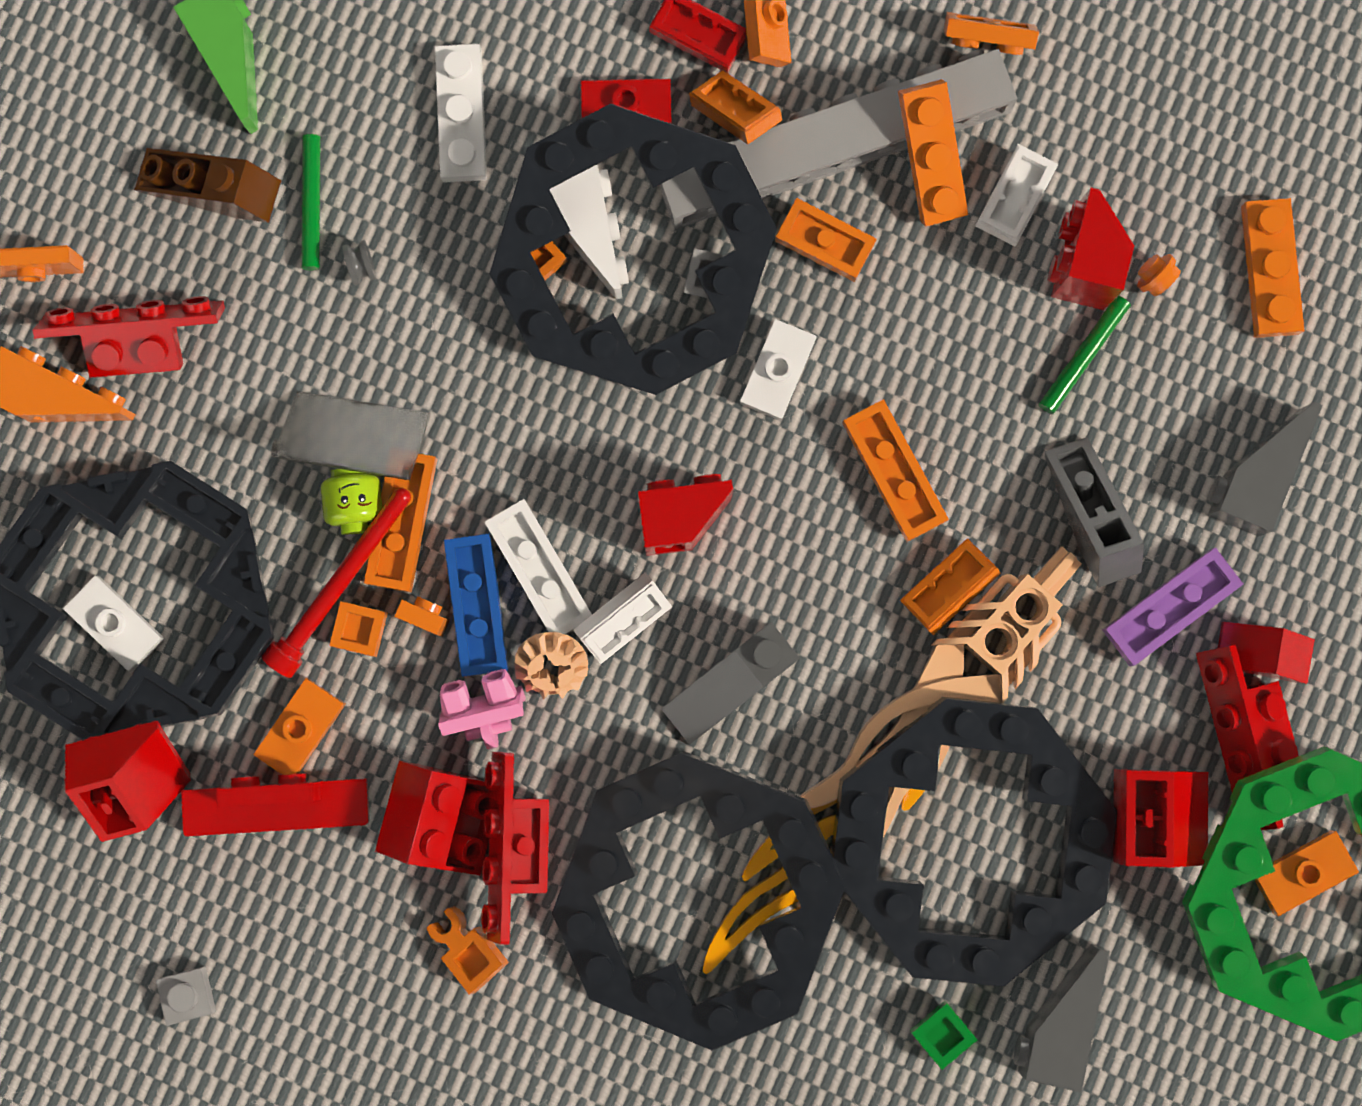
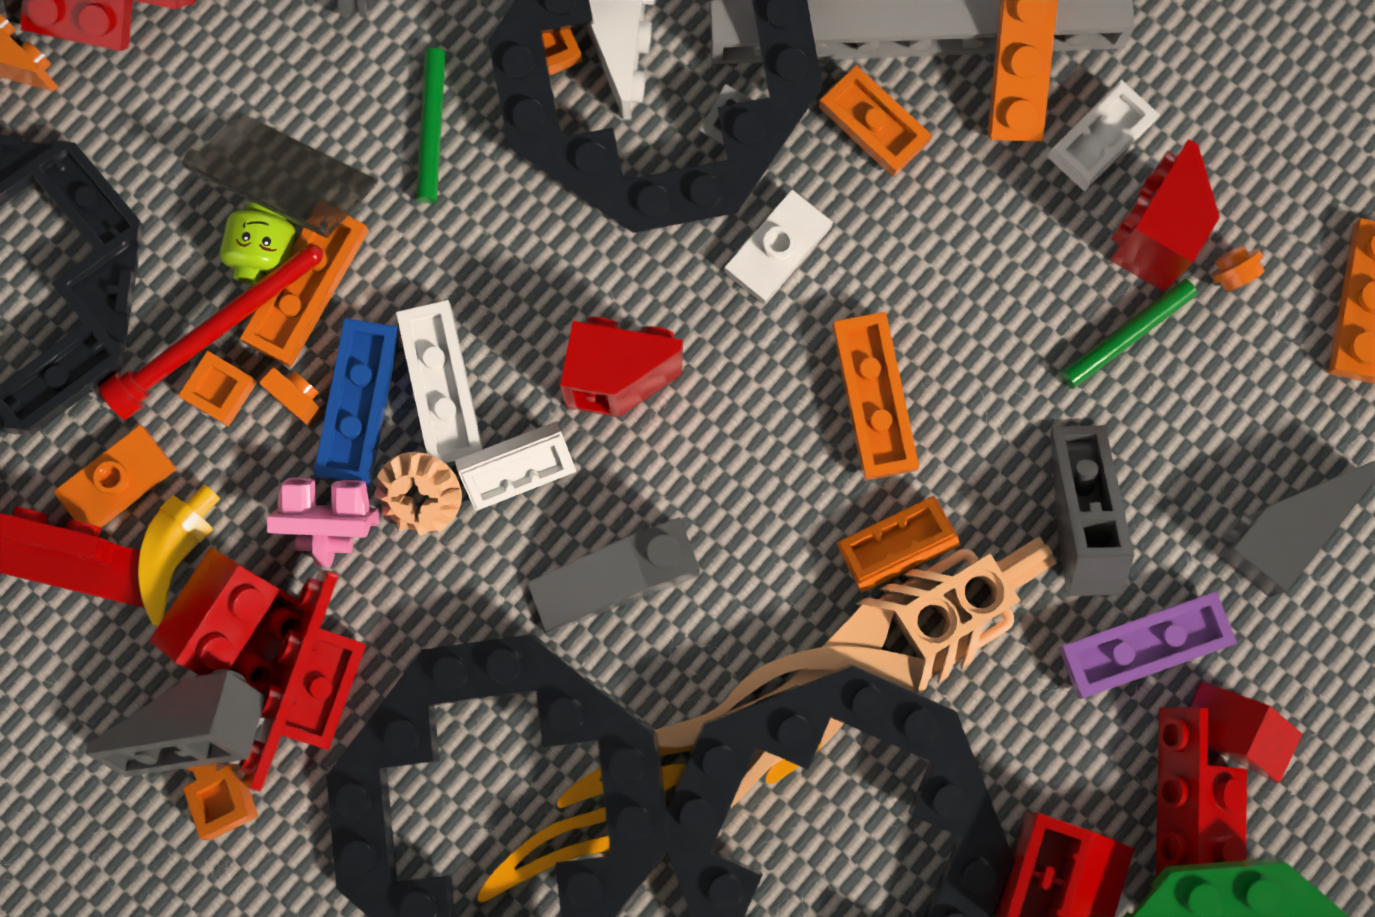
camera: 15 degrees right, 5 degrees down
(360, 768) = (167, 542): none -> yellow bar
(431, 911) = (186, 727): none -> dark grey slope
(459, 354) = (430, 125): none -> green bar

